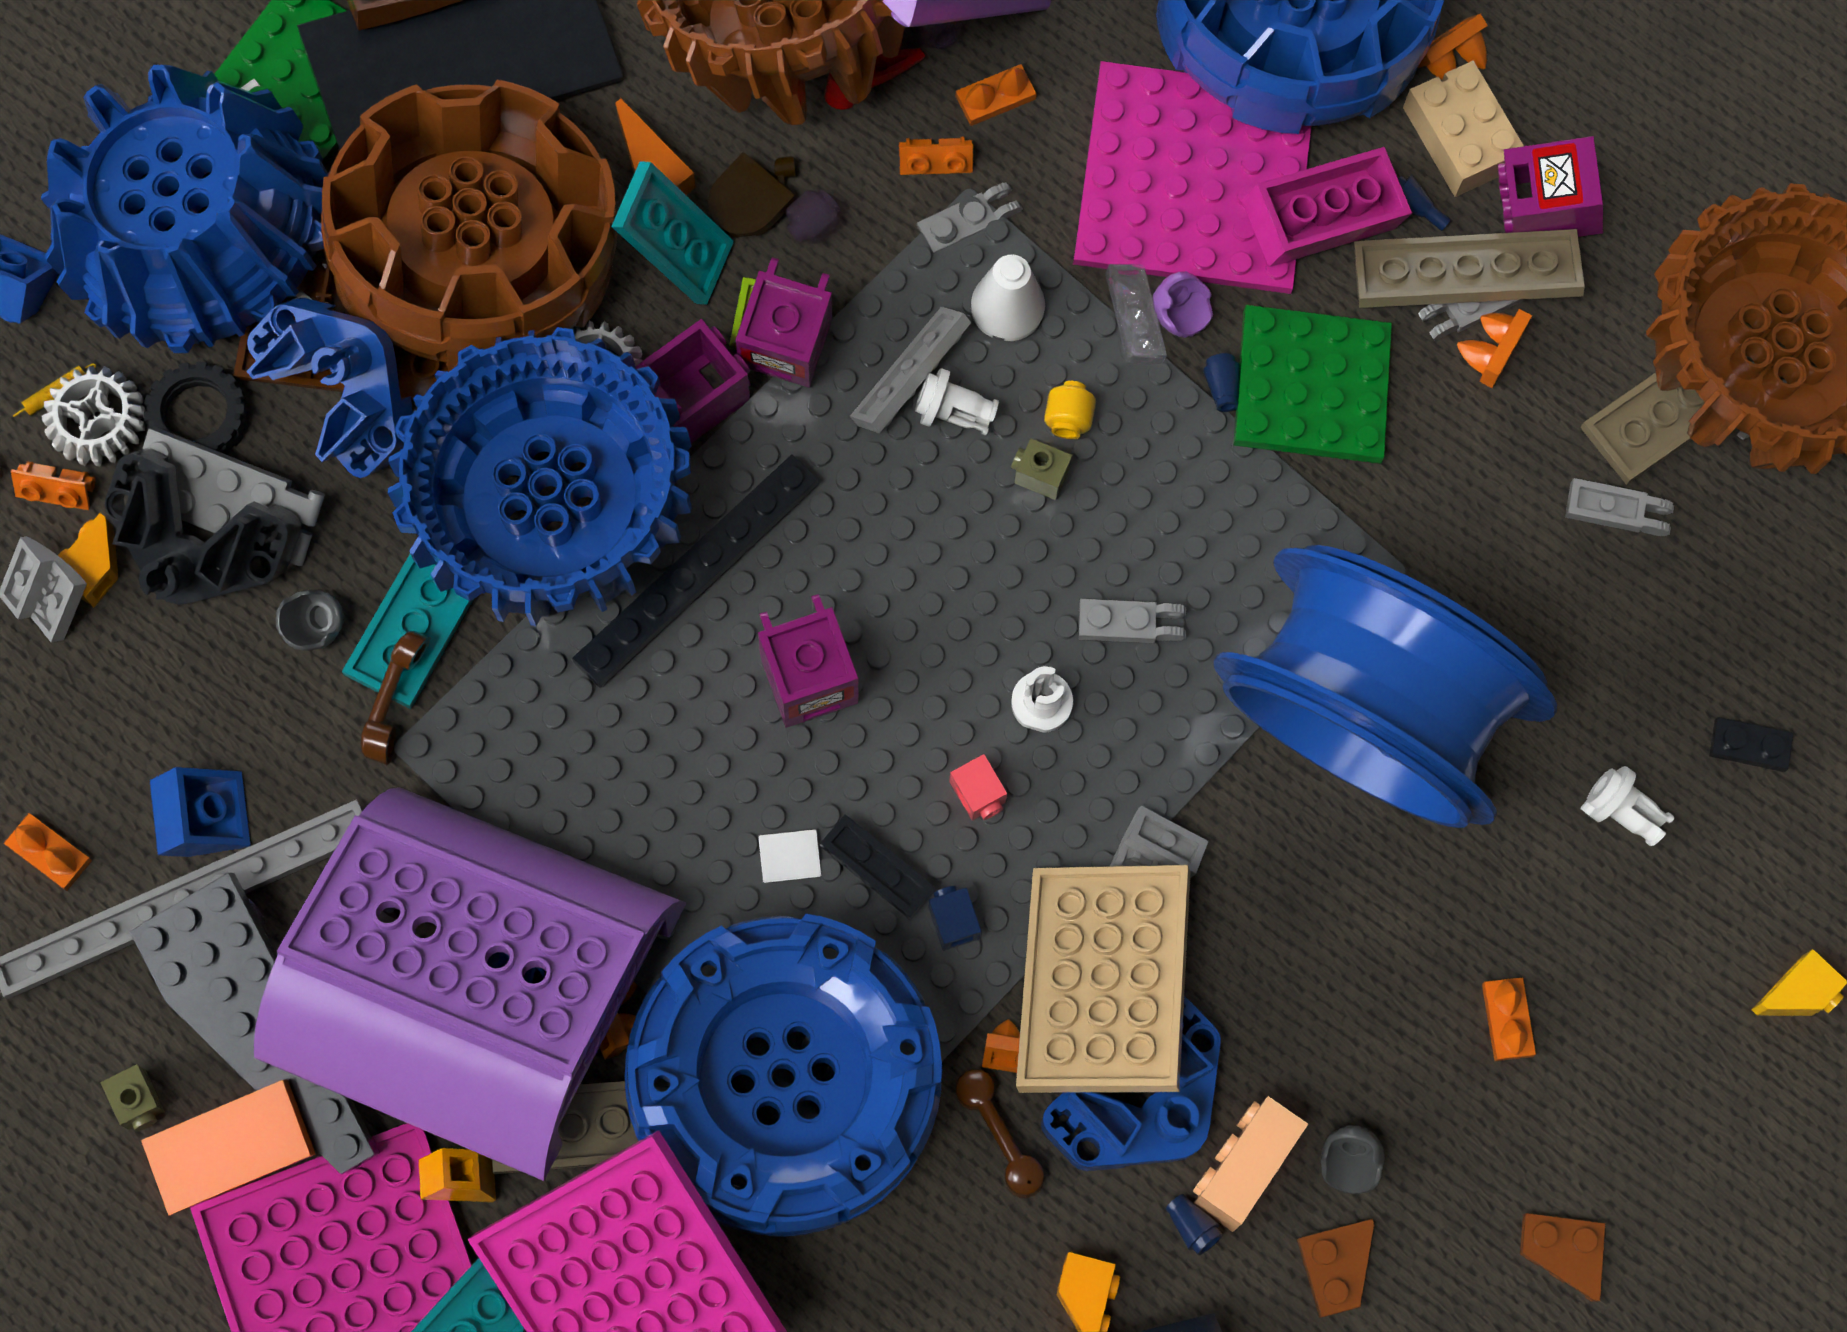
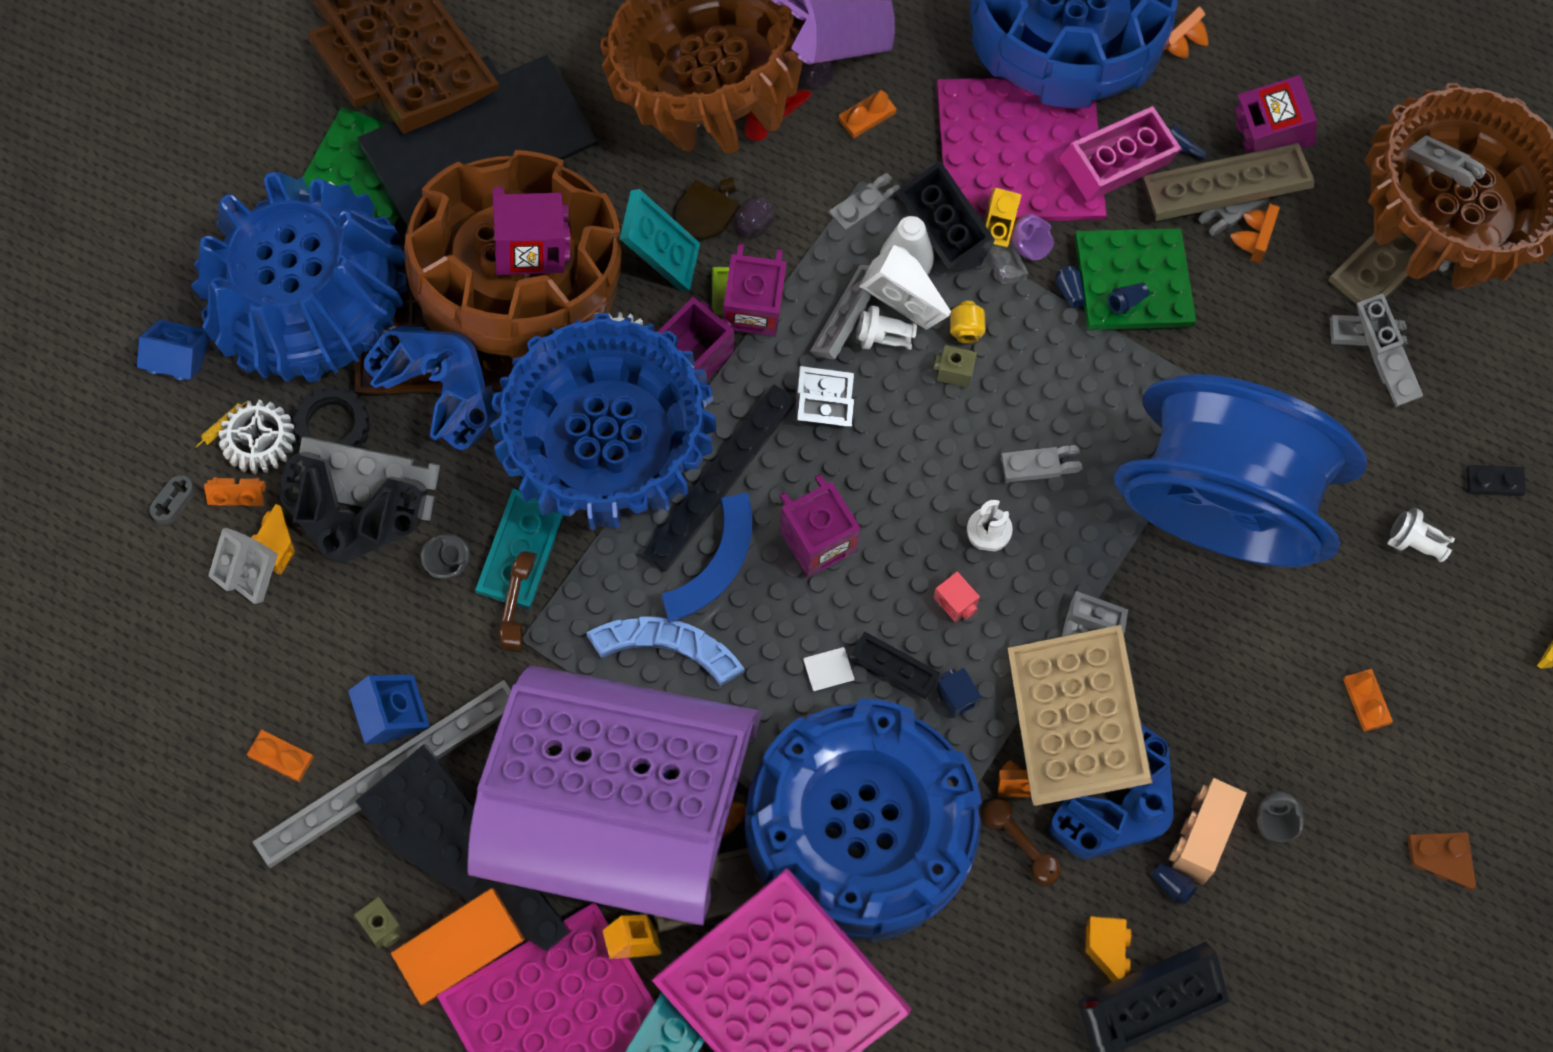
camera: 10 degrees left, 5 degrees down
(486, 202) = (530, 233): none -> magenta container
(586, 775) = (671, 636): none -> light blue tile
(647, 147) = (621, 183): orange slope -> none
(674, 695) = (723, 567): none -> blue tile
(856, 482) = (824, 396): none -> slope
(947, 157) = (835, 163): orange hinge -> none
(989, 348) = (904, 286): none -> white slope
(1070, 261) = (948, 218): none -> black slope
(1143, 270) = (1001, 214): none -> yellow slope
(1293, 411) = (1125, 298): none -> dark blue cone
(1337, 1266) = (1283, 896): dark orange wing -> none
(1461, 127) = (1202, 86): tan piece -> none
(1639, 541) = (1387, 350): none -> light grey slope
(1768, 292) = (1446, 160): none -> light grey hinge

